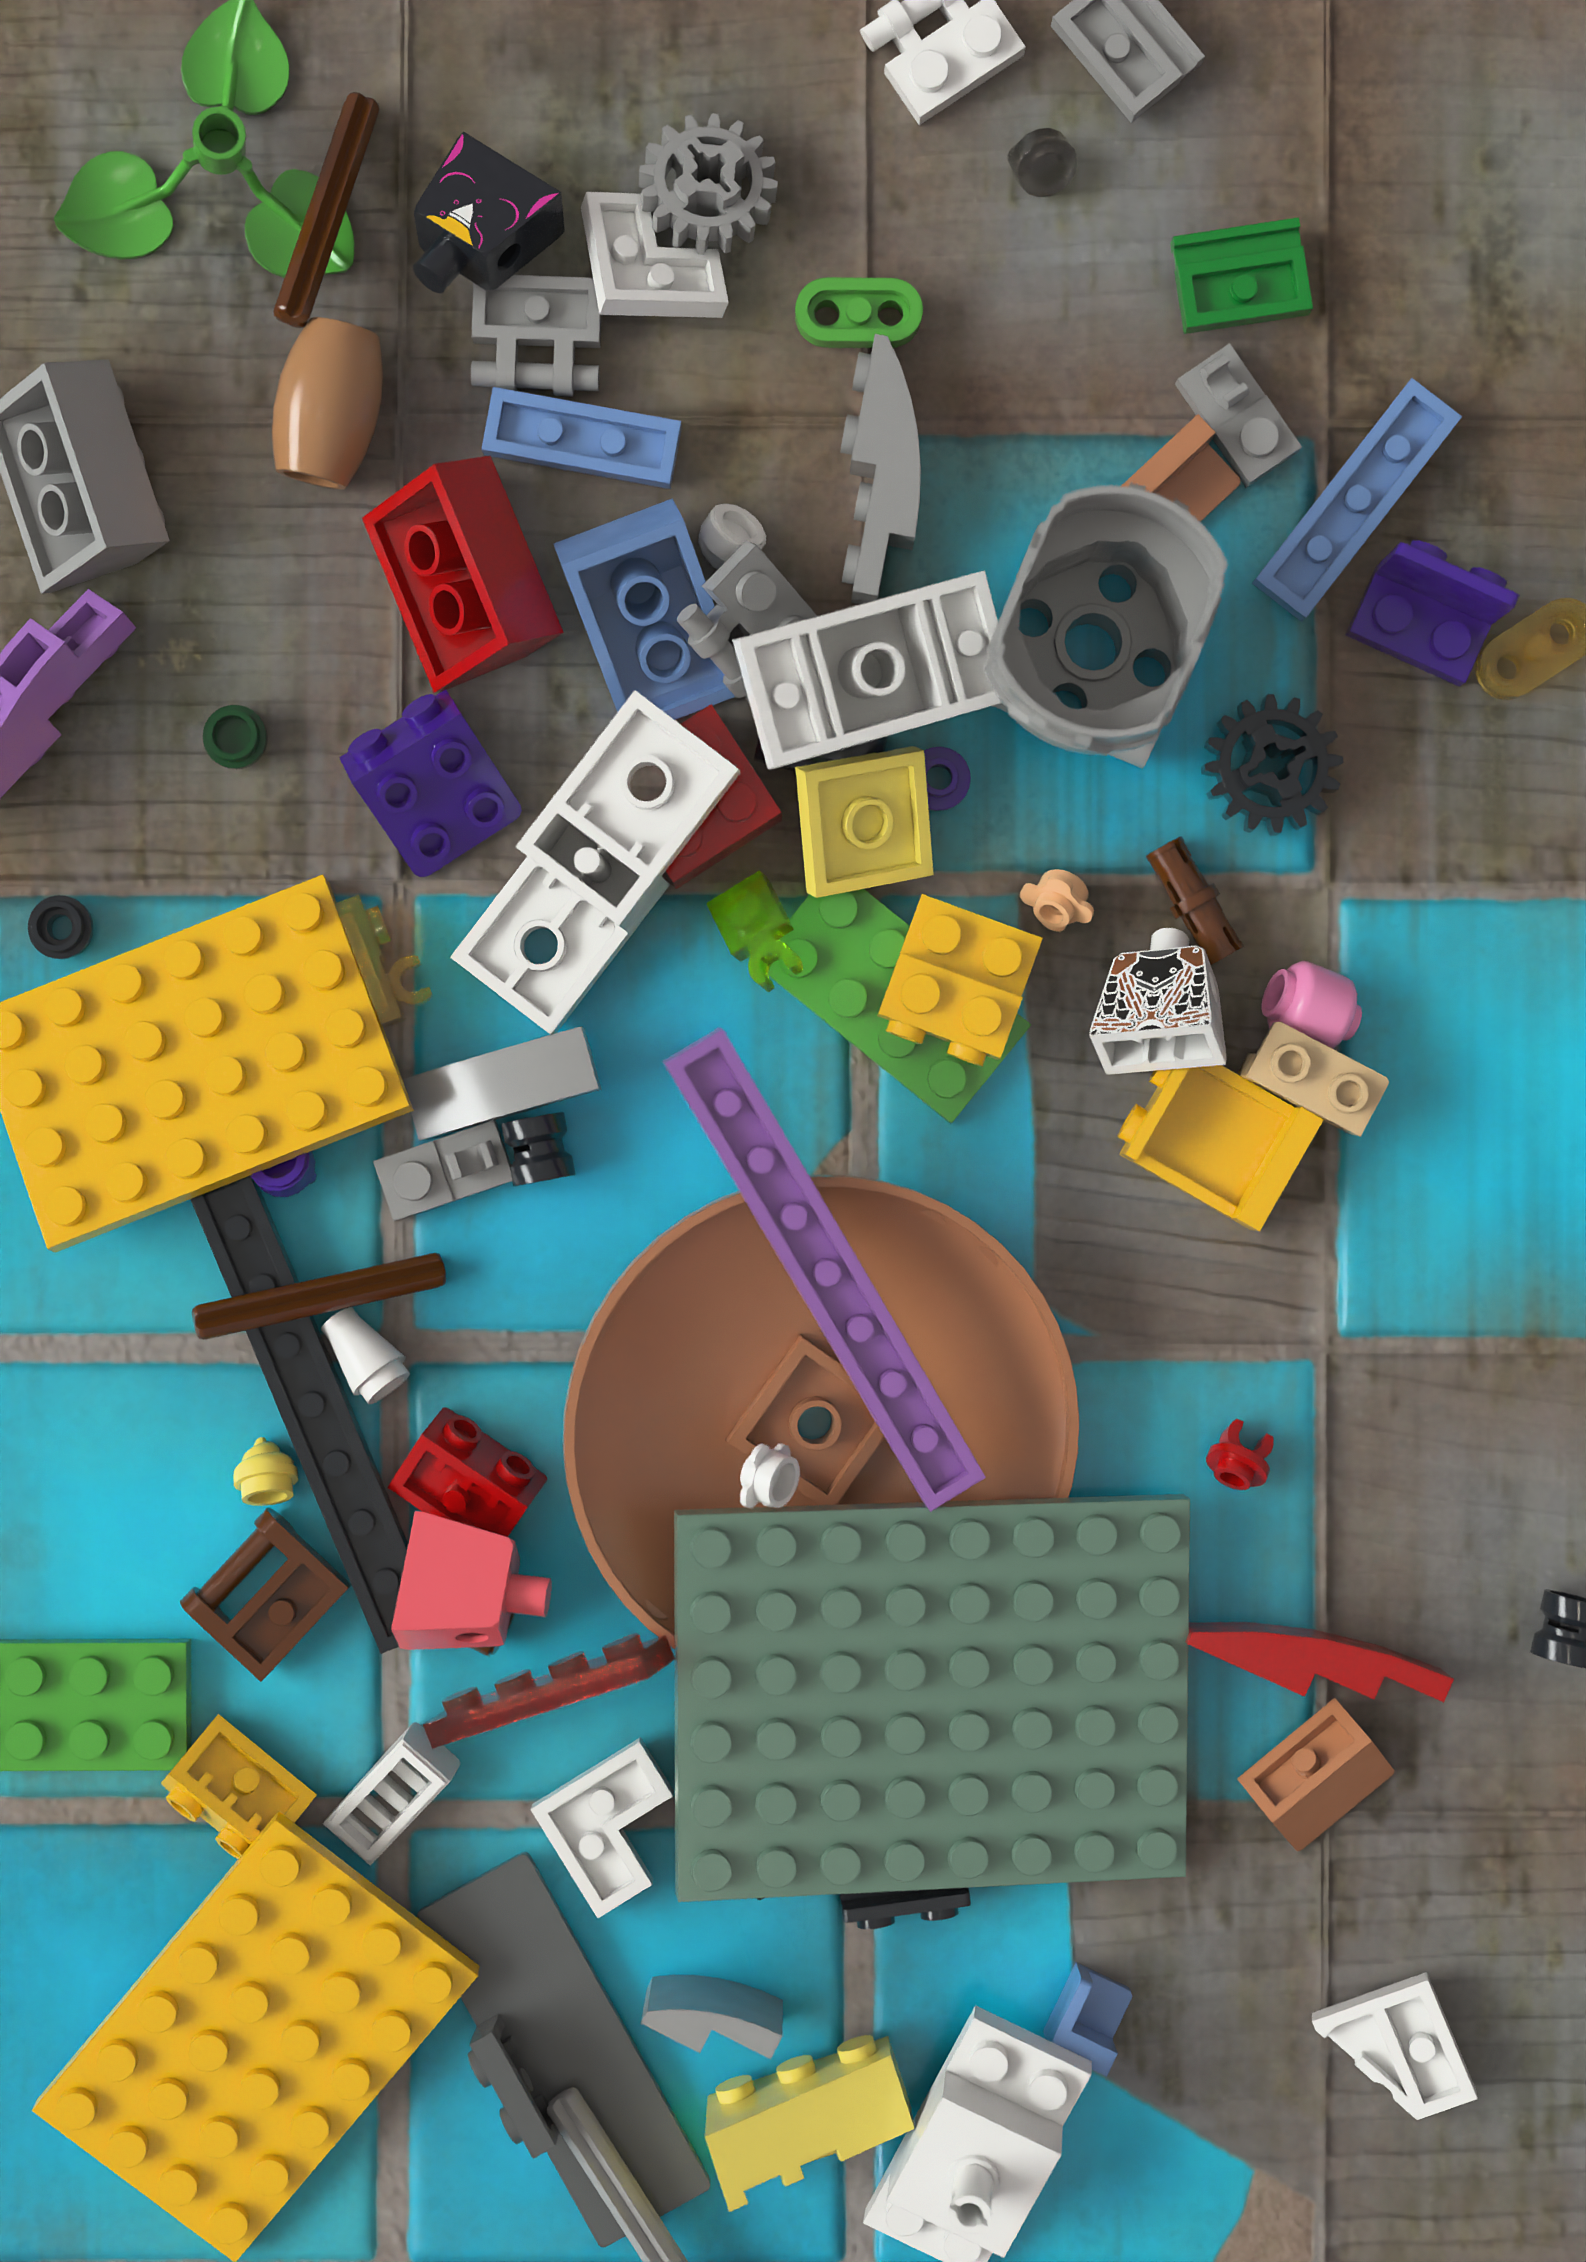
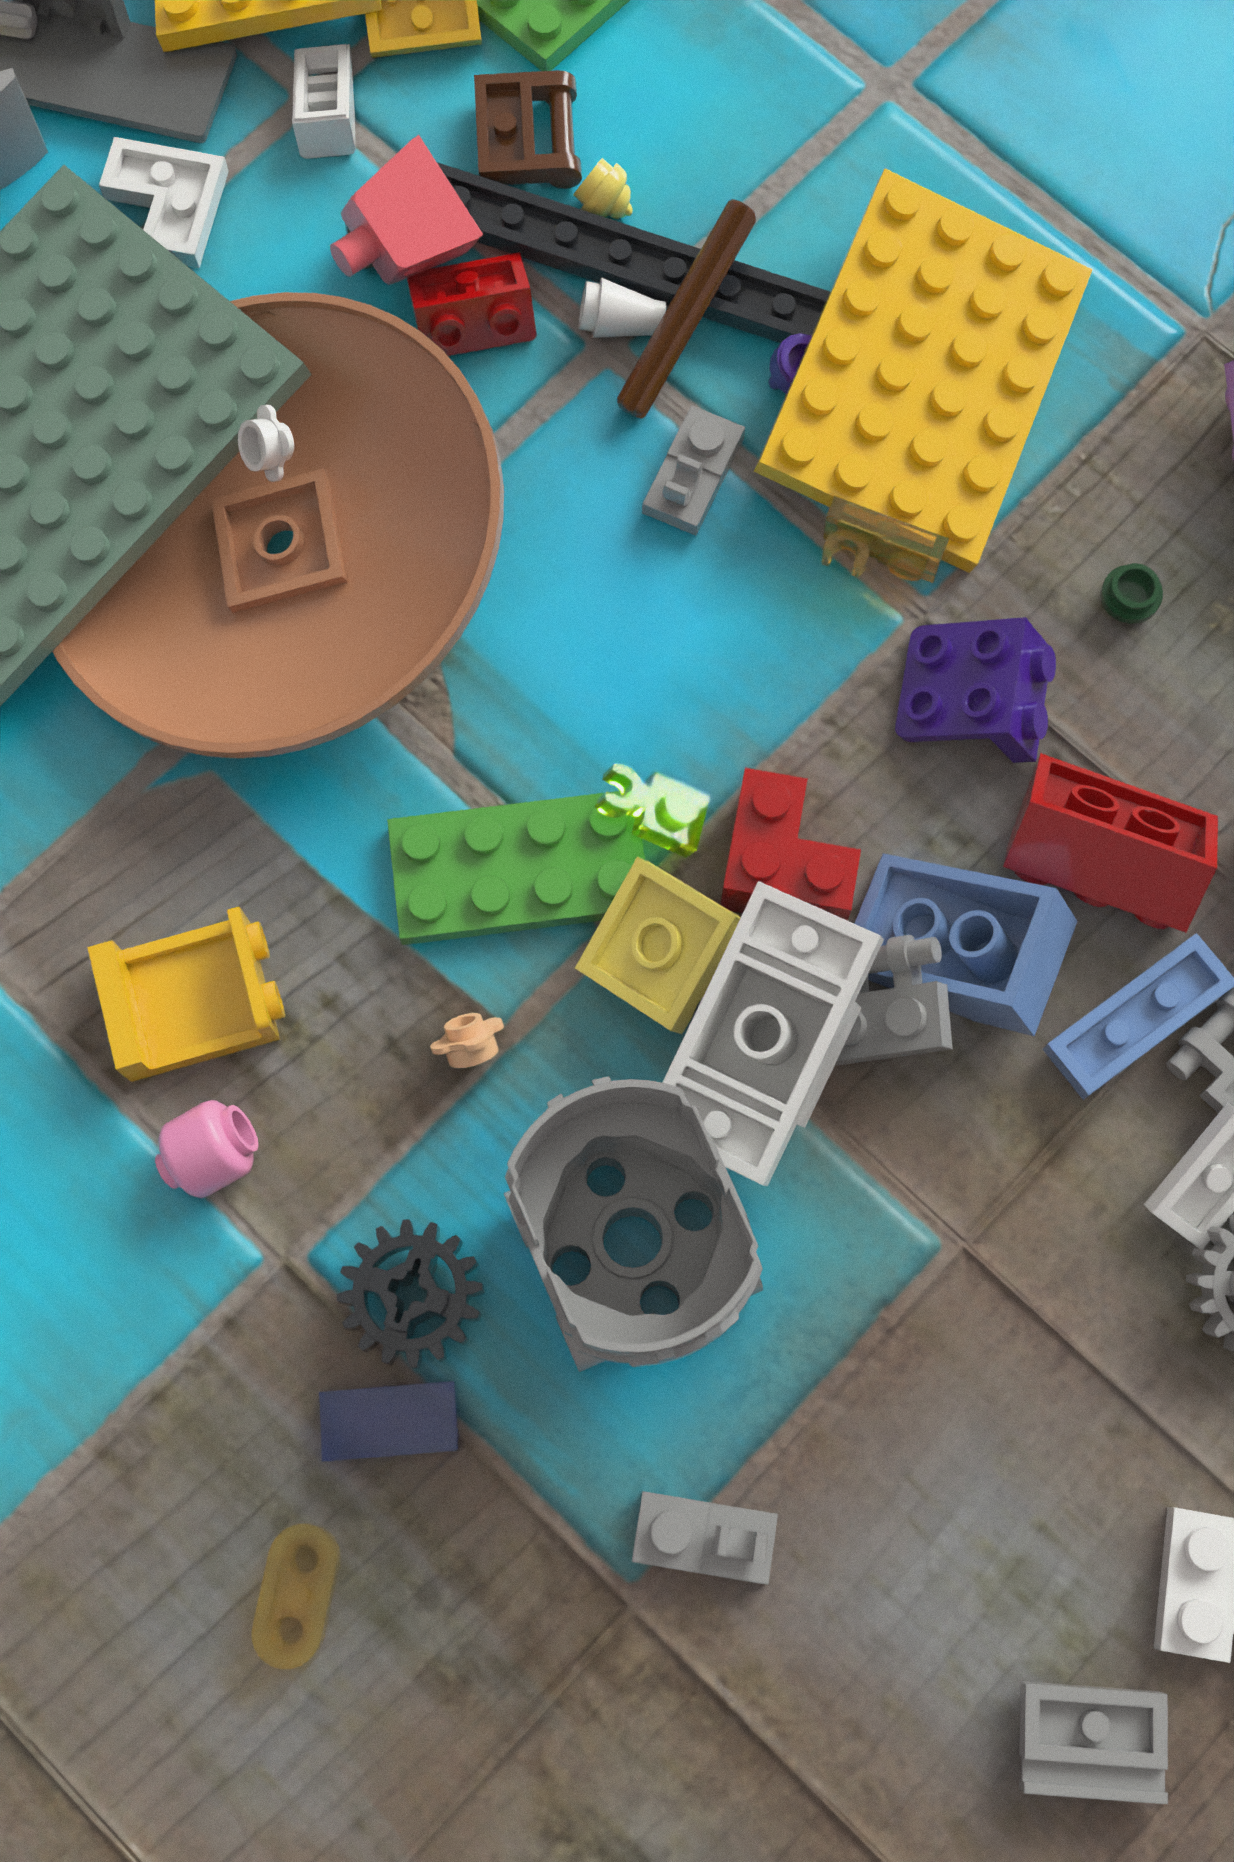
camera: 135 degrees right, 15 degrees down
(41, 924) = (1105, 362): black plate -> none
(502, 1083) = (712, 553): light grey slope -> none
(538, 1149) = (643, 531): black wheel -> none
(569, 1681) = (280, 214): clear red plate -> none
(595, 862) = (812, 732): white bracket -> none
(726, 531) = (971, 1059): white tile -> none
(824, 1268) = (371, 599): medium lavender plate -> none
(858, 306) = (1054, 1312): bright green plate -> none
(887, 450) = (930, 1233): light grey slope -> none
(958, 980) = (479, 904): yellow plate -> none
(960, 778) = (640, 1059): dark purple plate -> none
(1043, 162) = (1050, 1571): clear smoke tile -> none
(1159, 1009) = (314, 1029): white torso -> none
(1189, 471) = (692, 1423): nougat panel -> none
(1194, 900) = (369, 1141): reddish brown pin -> none
(1241, 275) = (814, 1648): green plate -> none
(1315, 1078) = (150, 1090): tan bracket -> none
(1357, 499) = (549, 1568): medium blue plate -> none
(1367, 700) = (389, 1421): none -> clear blue tile
(1430, 610) = (402, 1526): dark purple bracket -> none

